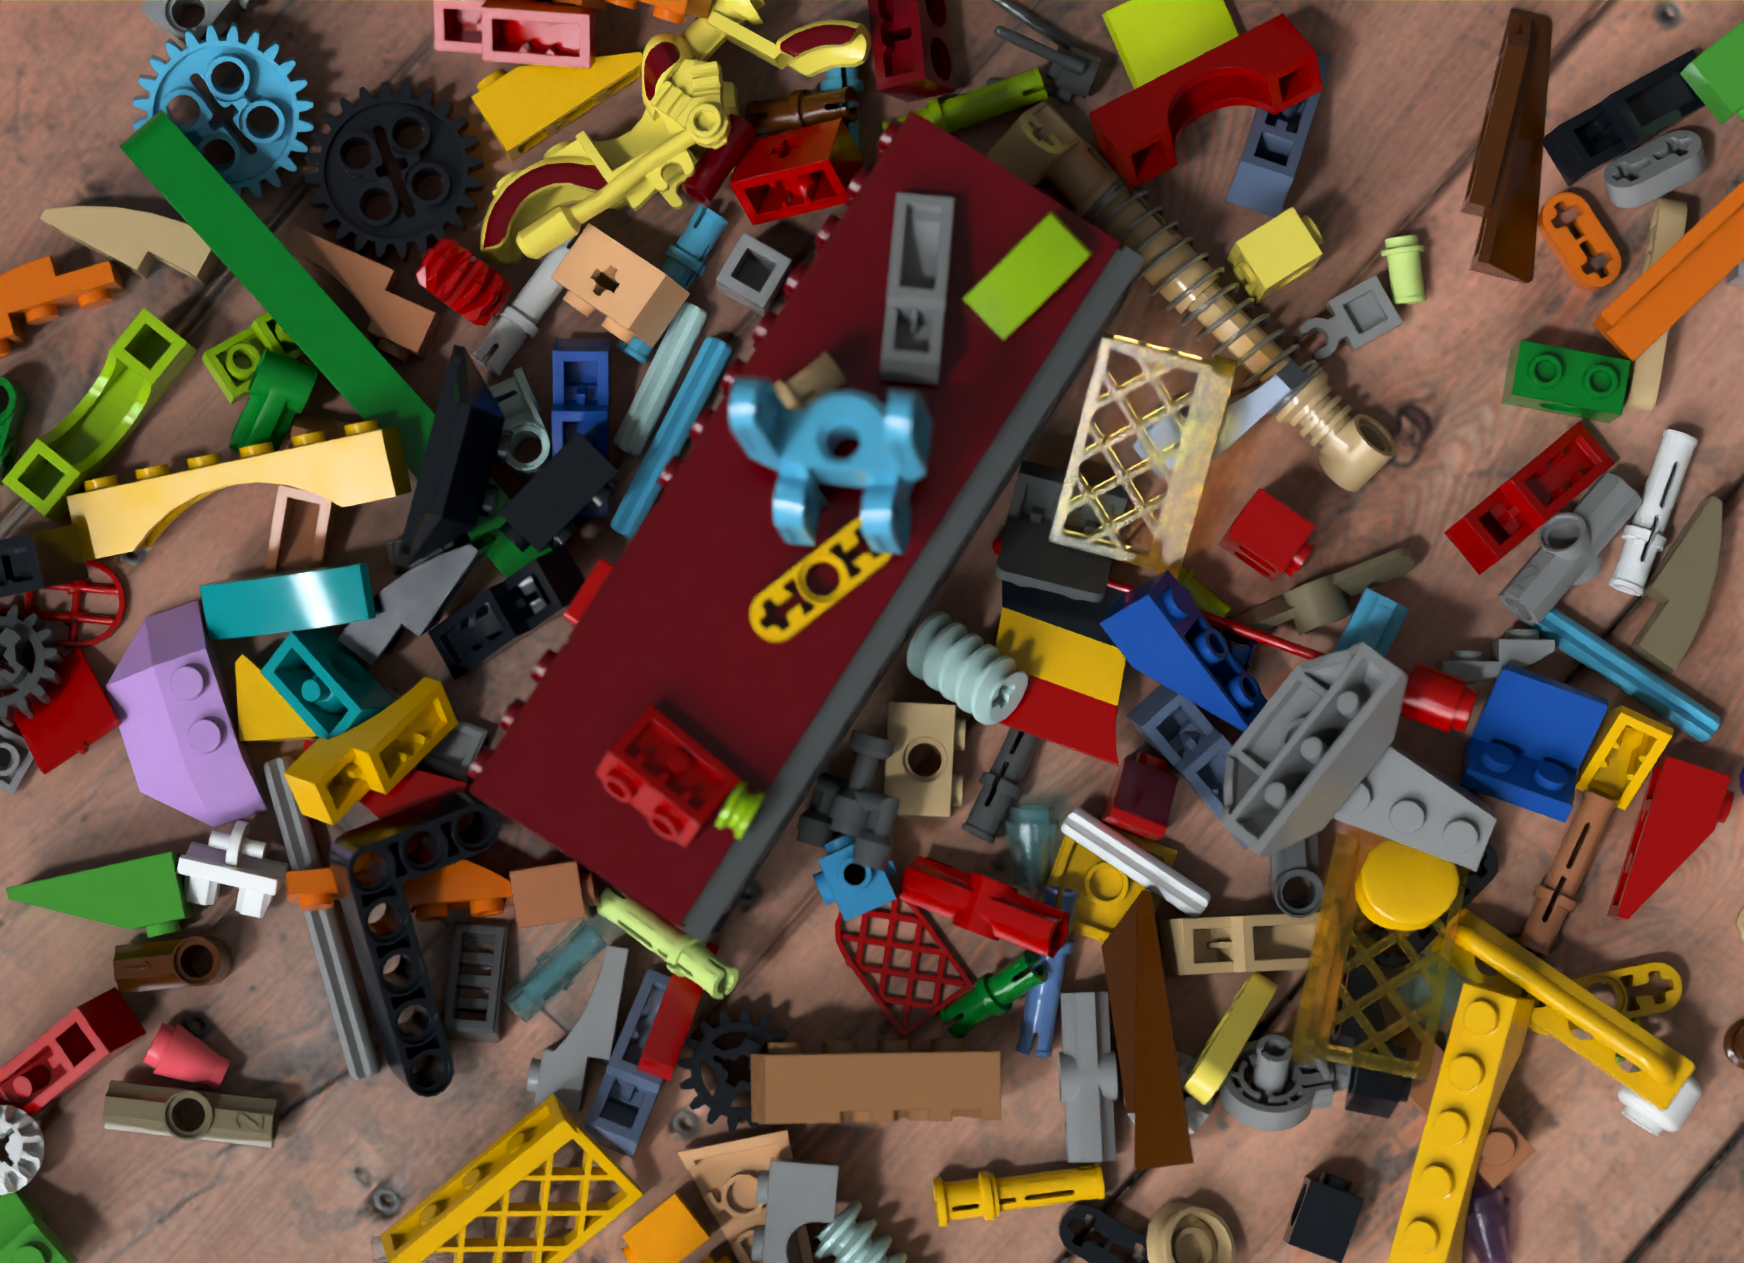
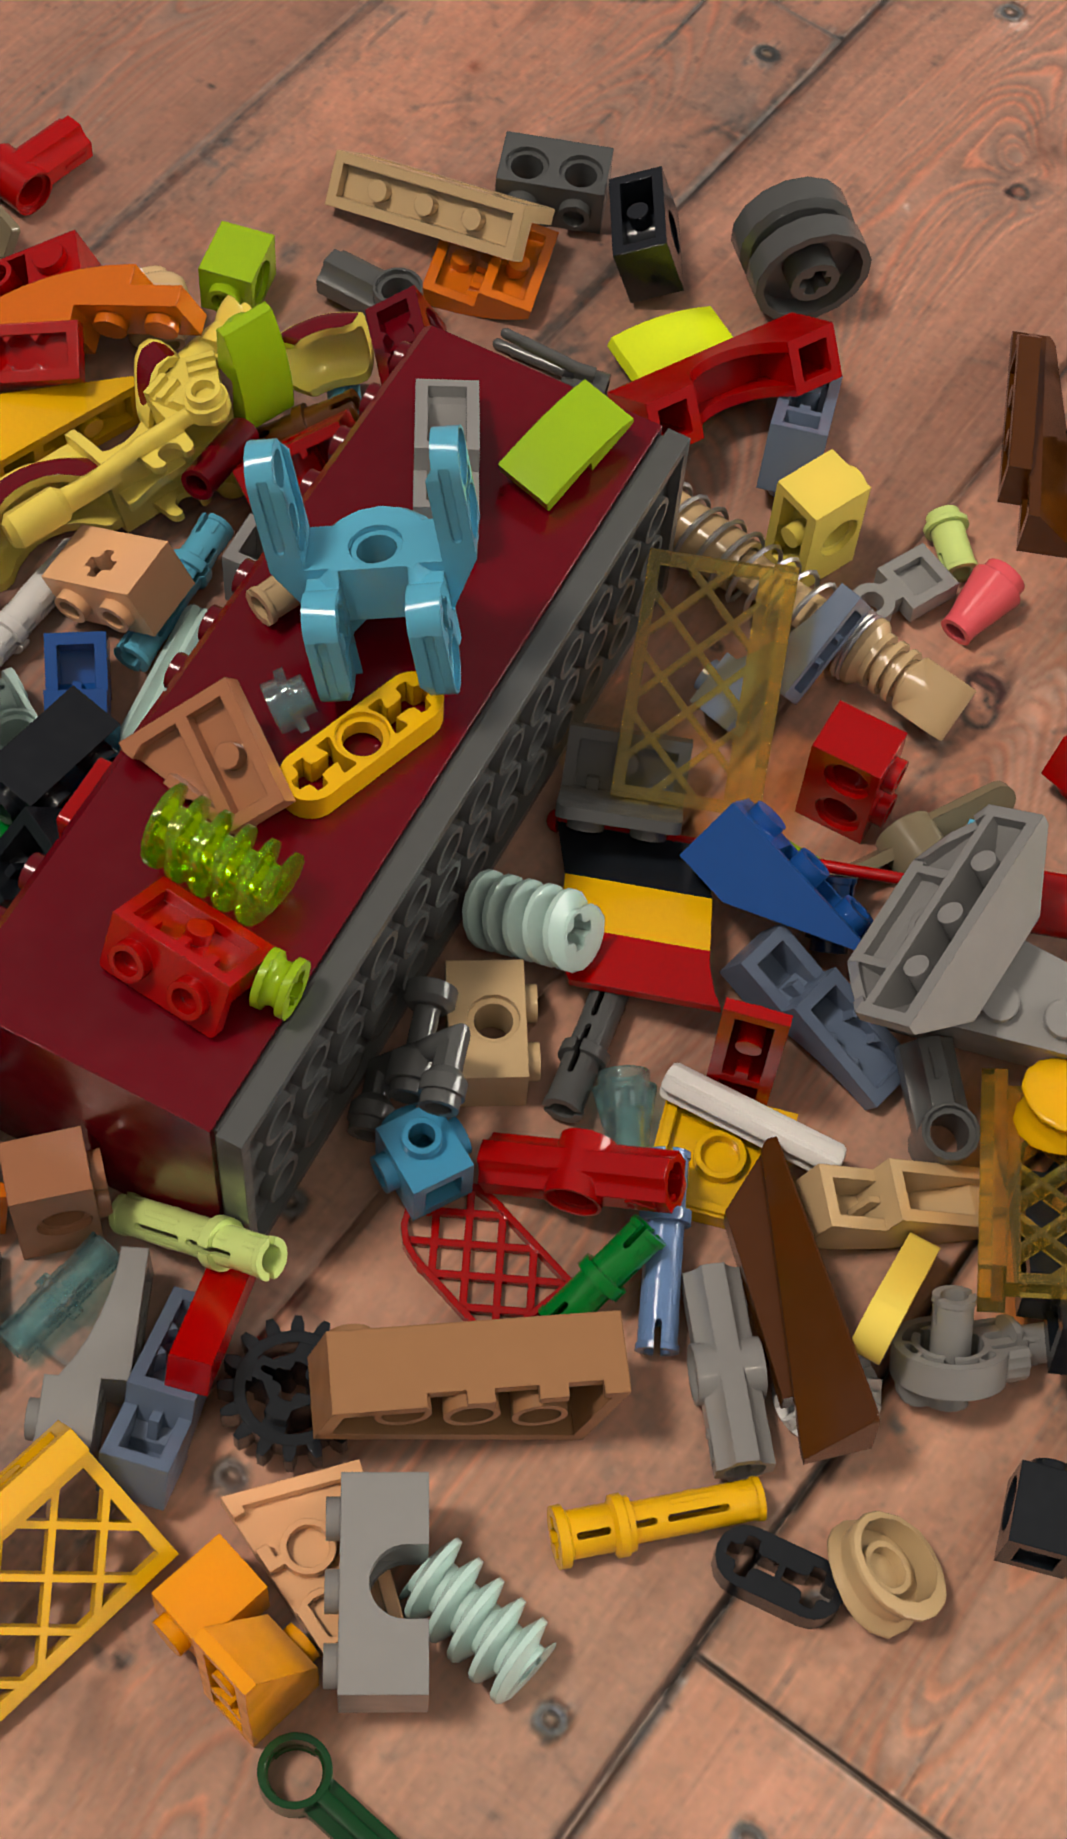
camera: 10 degrees left, 25 degrees down
(695, 695) = (215, 860): none -> clear neon green piece
(697, 597) = (217, 752): none -> nougat wing
(754, 73) = (256, 363): none -> lime slope
(761, 539) = (289, 701): none -> clear light blue plate
(1423, 338) = (986, 597): none -> coral cone

